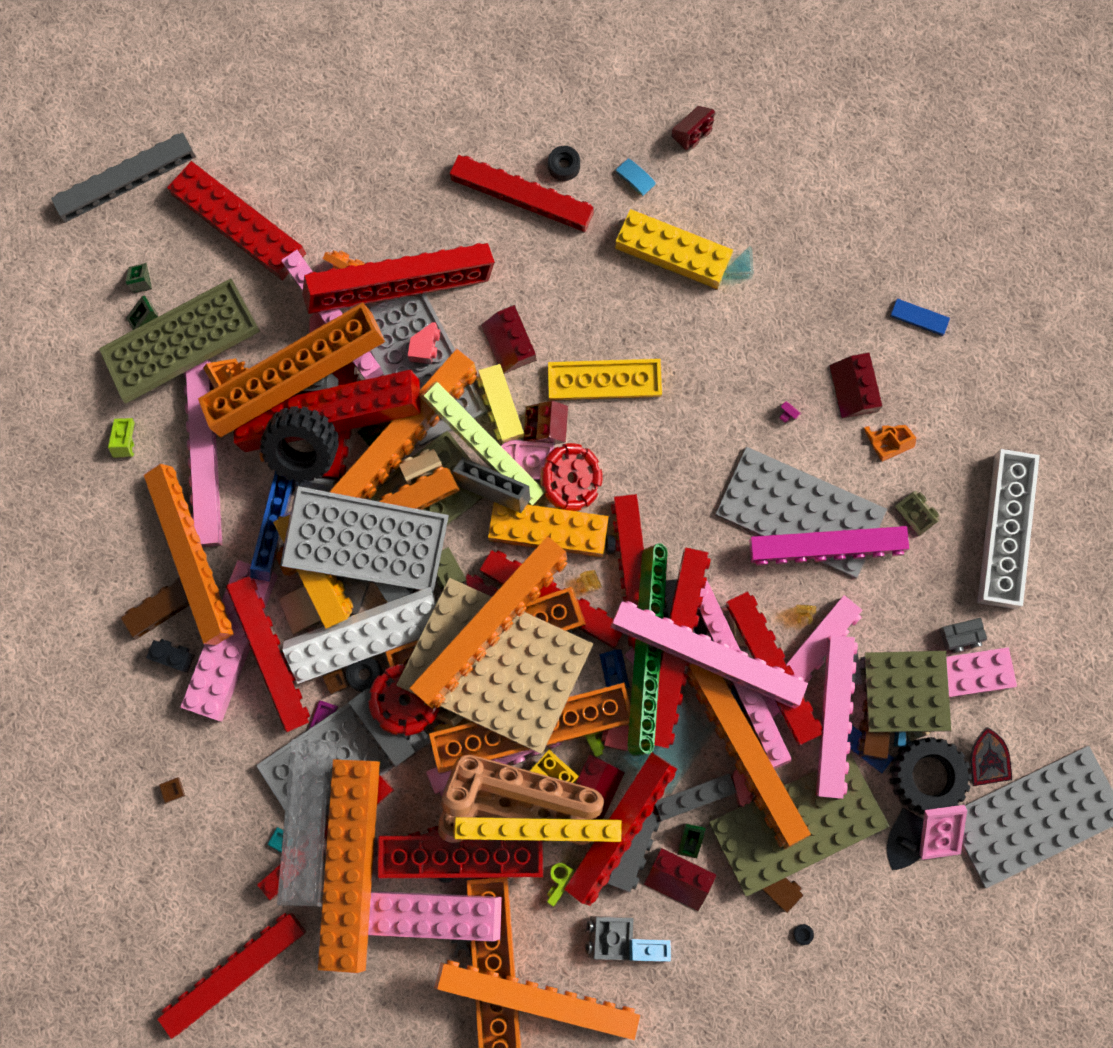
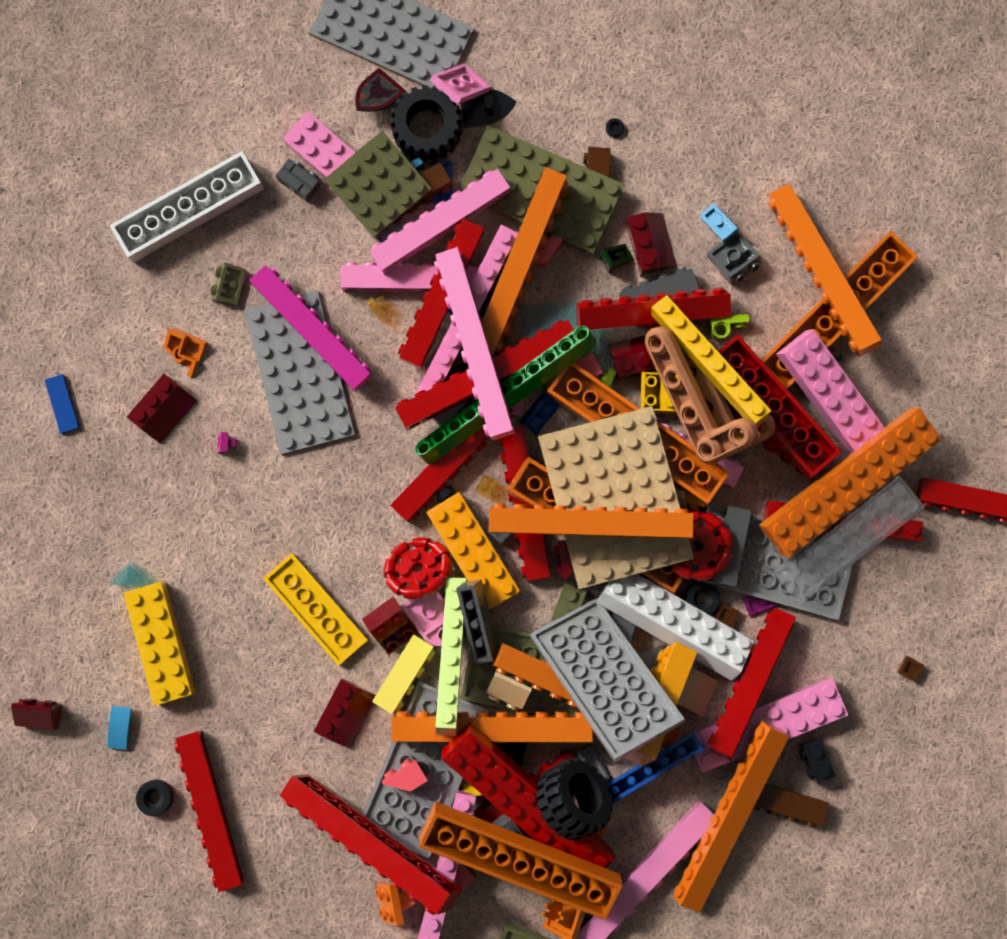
camera: 130 degrees left, 5 degrees up
(276, 839) = (875, 556): teal tile -> none
(695, 797) = (582, 277): dark grey brick -> none

